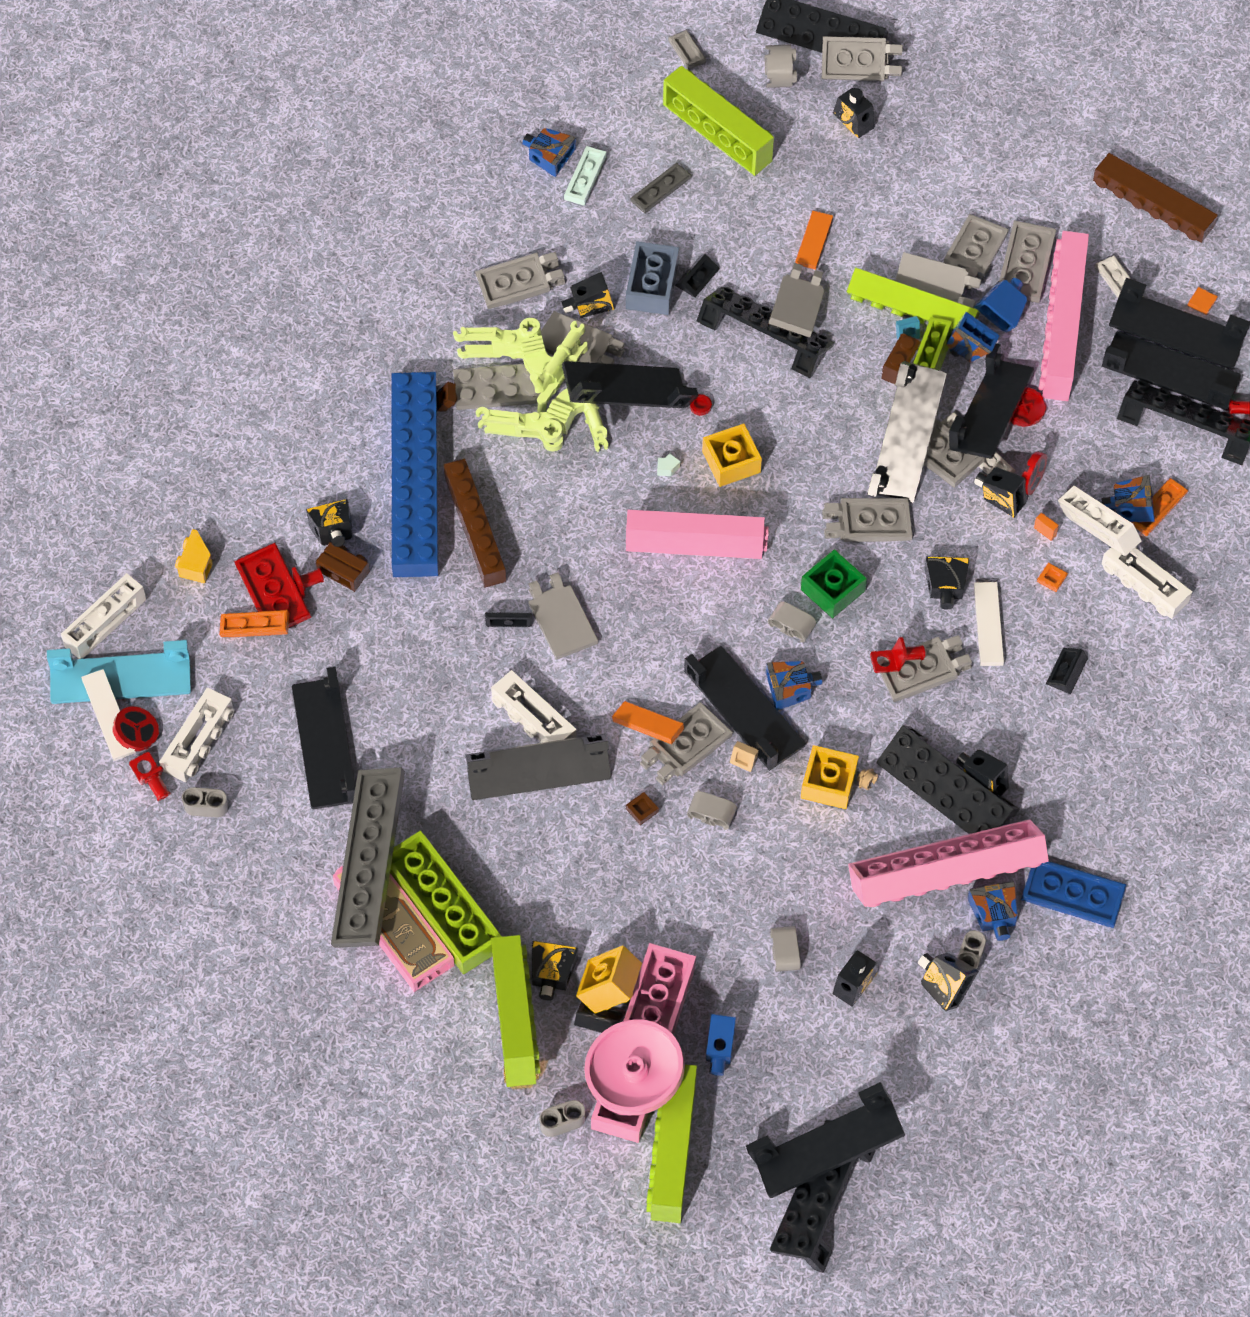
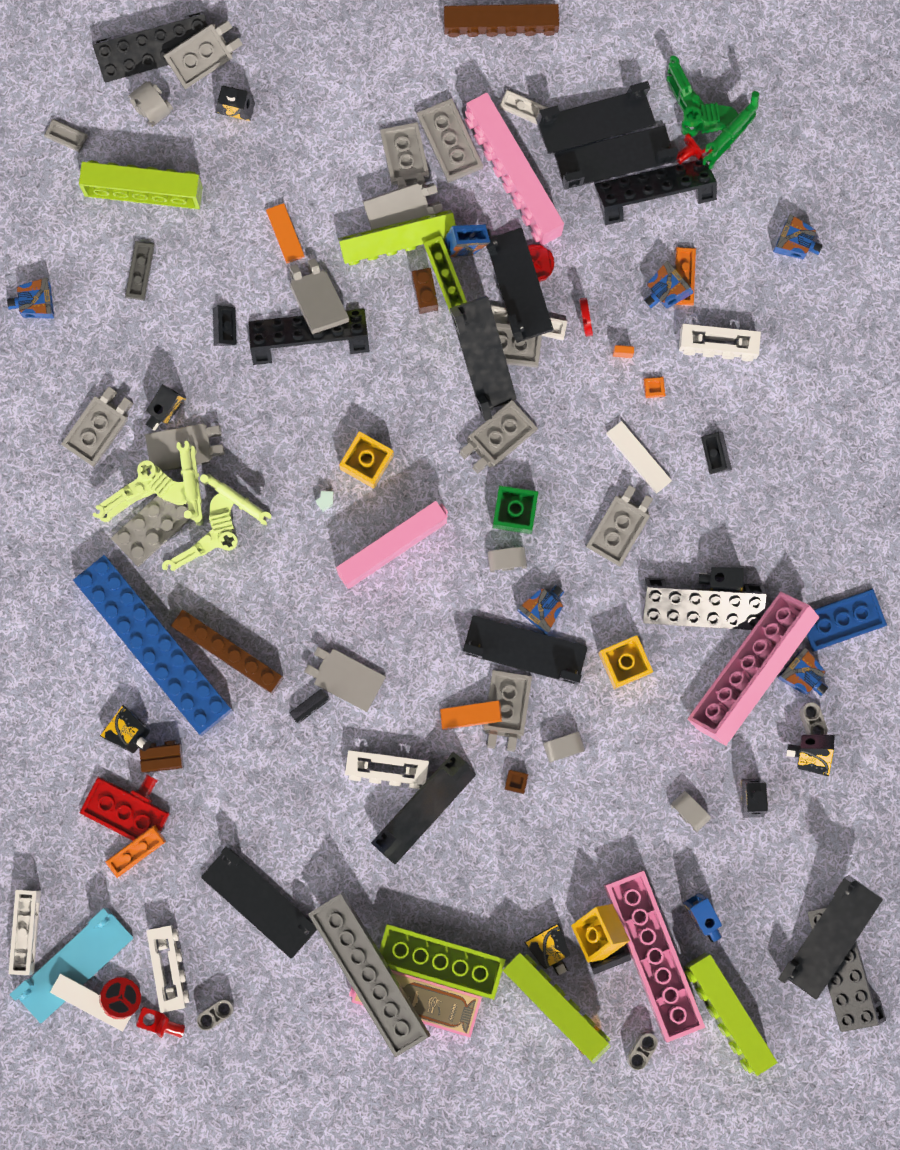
camera: 45 degrees left, 20 degrees up
(195, 559) = (51, 834): yellow slope -> none
(446, 397) = (124, 565): reddish brown plate -> none
(585, 175) = (77, 302): light aqua plate -> none
(626, 385) = (251, 464): black bracket -> none
(634, 1067) = (673, 990): bright pink dish -> none
(652, 278) = (196, 355): sand blue brick -> none
(701, 405) = (309, 432): red tile -> none
(744, 756) = (554, 689): tan plate -> none
(866, 777) = (648, 641): tan plate -> none
(897, 656) = (602, 533): red bracket -> none
(908, 326) = (409, 261): dark azure plate -> none
(946, 579) = (587, 445): black torso -> none
(1003, 304) = (463, 191): blue torso -> none
(1003, 490) = (581, 345): black torso -> none
(1099, 520) = (662, 324): white brick -> none
(1202, 301) = (594, 82): orange tile -> none

